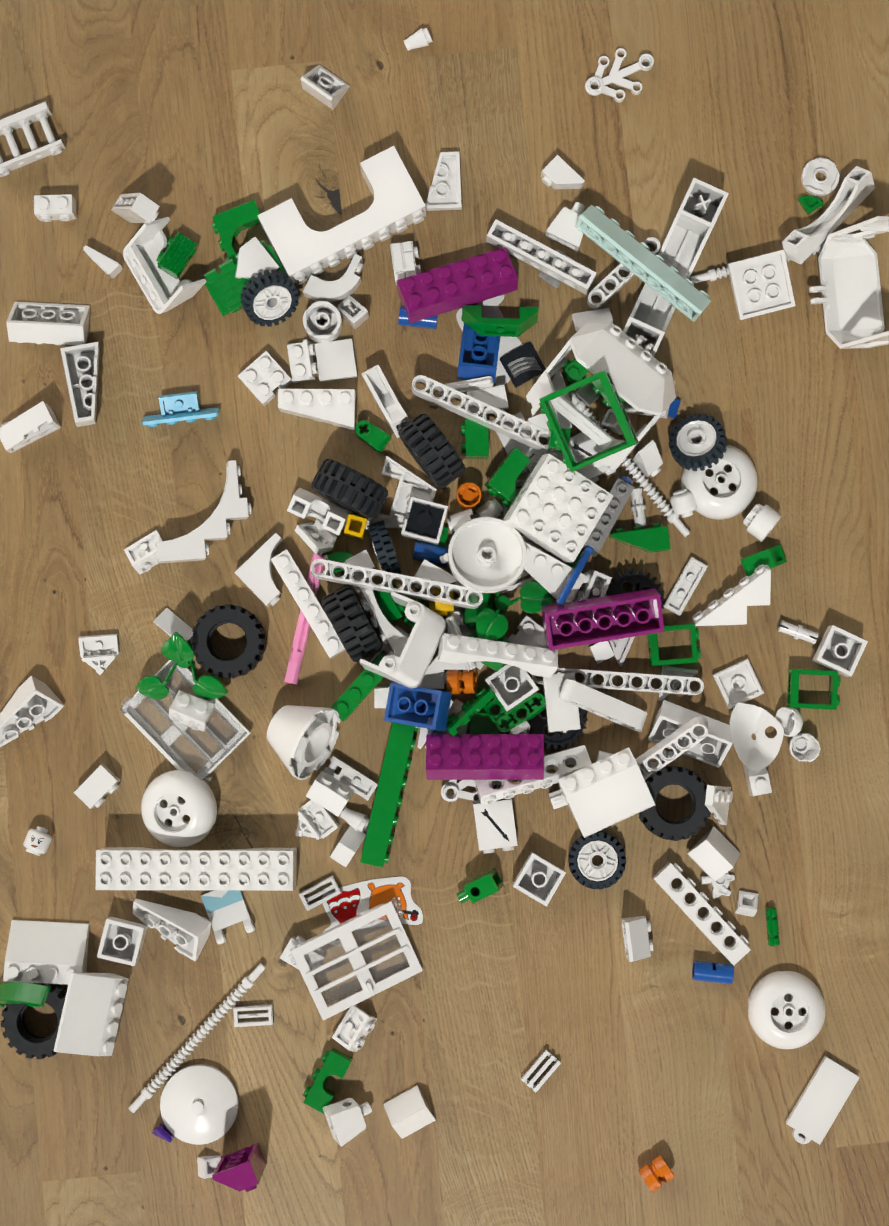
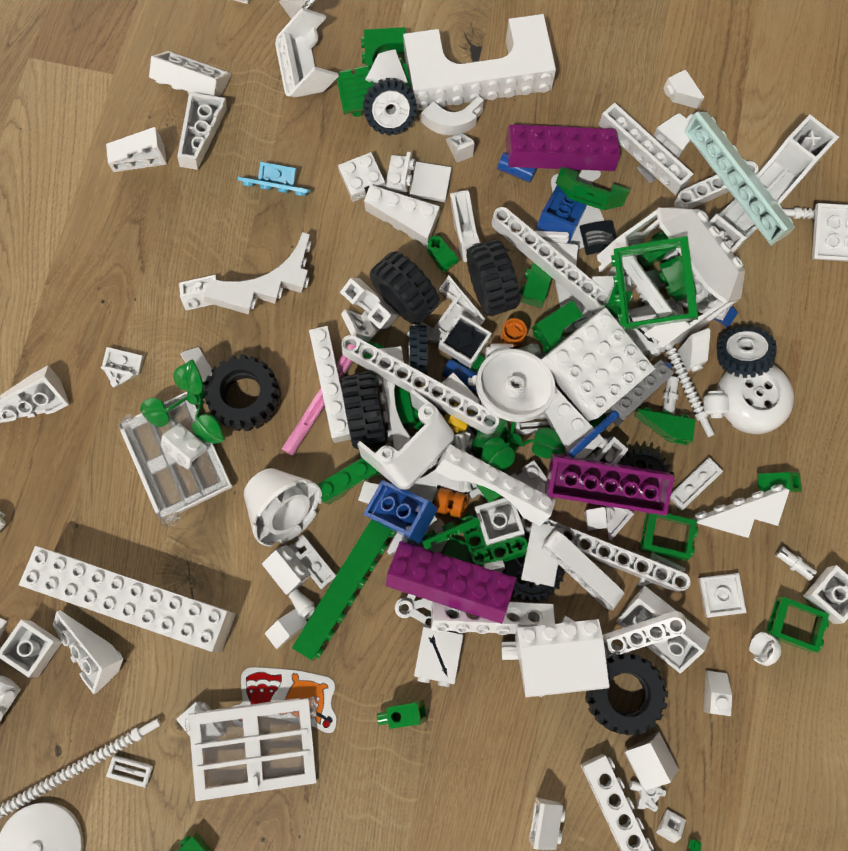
camera: 15 degrees right, 10 degrees down
(97, 787) = (68, 489): white brick -> none
(108, 265) = (257, 41): white slope -> none
(177, 255) = (322, 52): green brick -> none
(198, 805) = (155, 537): white brick -> none
(226, 909) = (143, 652): white flag -> none
(257, 572) = (293, 341): white arch -> none
(305, 901) = (259, 664): white tile -> none
(313, 317) = (430, 143): white brick -> none
(315, 821) = (263, 593): white slope -> none
(354, 1029) = (225, 821): white bracket -> none
(355, 526) = (398, 327): yellow brick -> none
(403, 260) = (521, 112): white brick -> none
(446, 184) = (577, 69): white wing -> none
(538, 878) = (465, 726): white brick -> none
(600, 875) = (546, 730): wheel -> none
(616, 76) = (736, 29): white plant -> none
(718, 802) = (672, 707): white wing -> none
(753, 719) = (727, 636): white piece -> none
(761, 521) = (788, 444): white piece -> none
(804, 747) = (775, 681): white hair -> none

